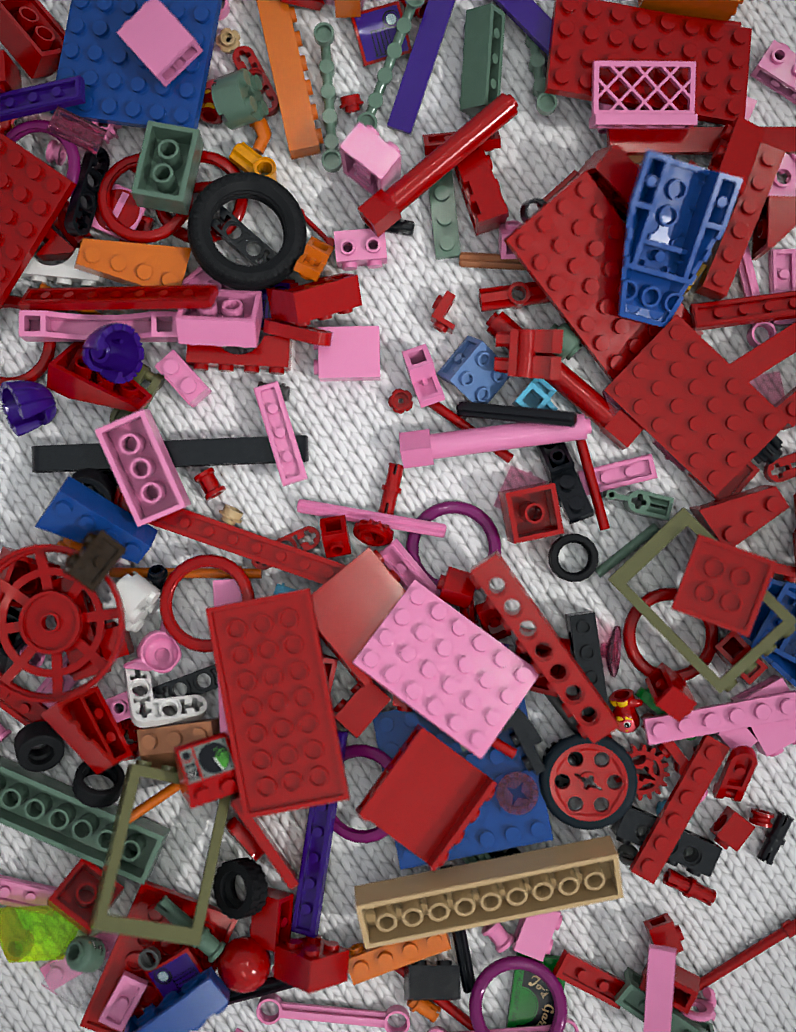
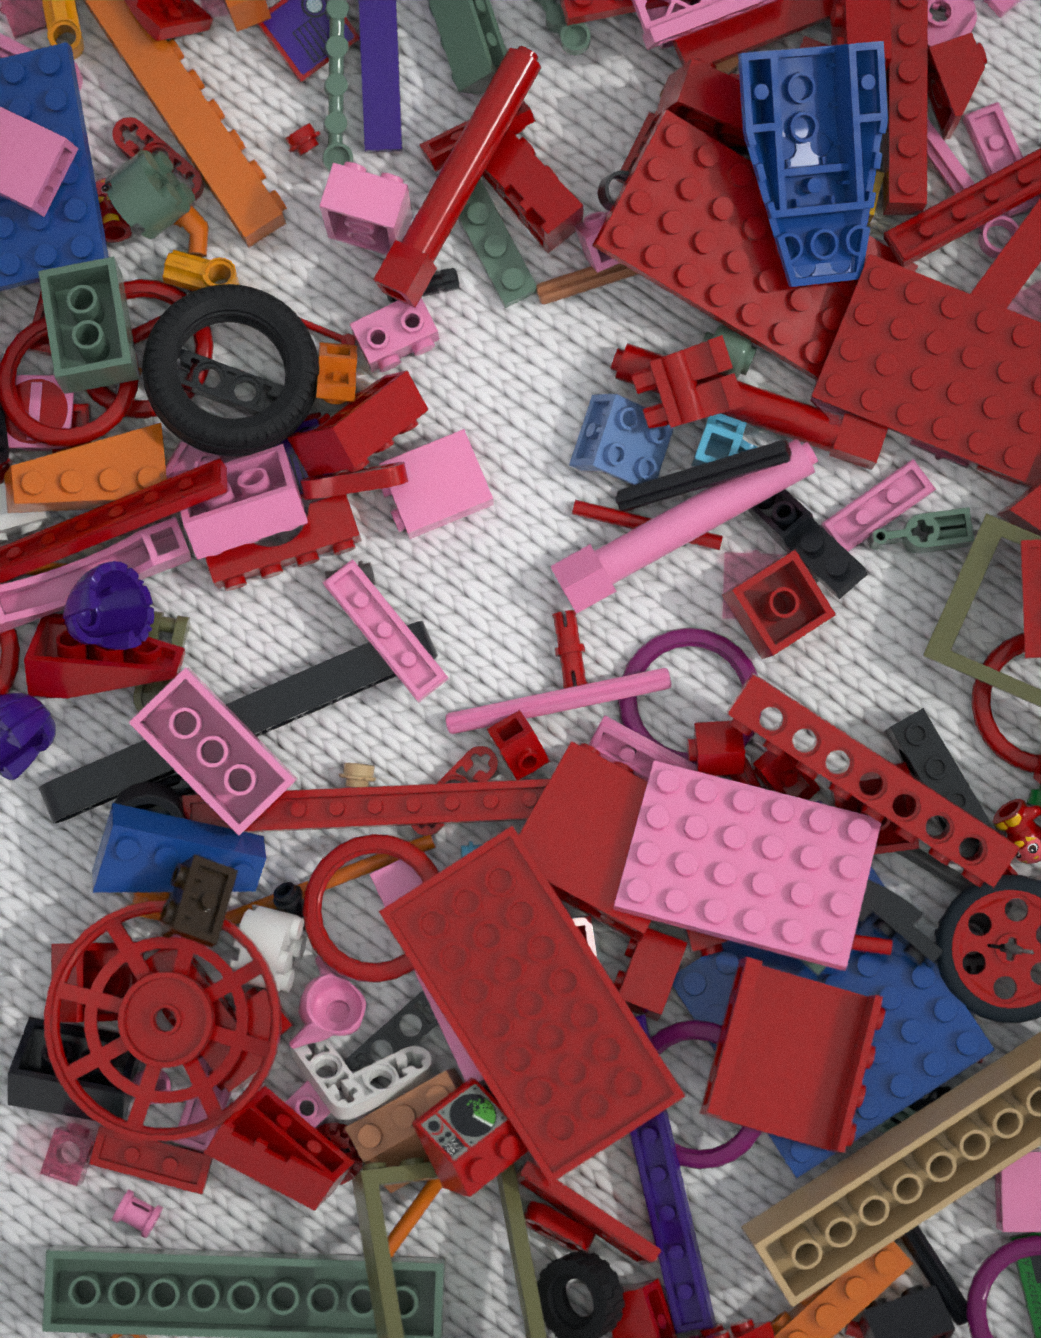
camera: 20 degrees left, 5 degrees down
(42, 758) = (227, 1222): black tyre -> none
(93, 797) = (319, 1245): black tyre -> none
(183, 378) = (217, 608): bright pink brick -> none
(209, 484) = (310, 742): red bush -> none
(228, 47) = (107, 122): tan plate -> none
(331, 157) = (308, 225): sand green bar -> none
(373, 533) = (557, 726): red gear -> none
(400, 407) = (537, 512): red plate -> none
(423, 375) = (552, 474): bright pink brick -> none
(442, 306) = (540, 369): red bracket -> none
(498, 936) = (973, 1222): bright pink bush -> none
(501, 298) = (618, 325): red piece -> none
(520, 805) = (931, 991): clear pink gear -> none
(591, 550) = (872, 618): black tyre -> none
(592, 484) = (848, 533): red bar -> none
(612, 651) = (970, 753): clear pink dish -> none
(626, 550) = (933, 608): sand green bar -> none

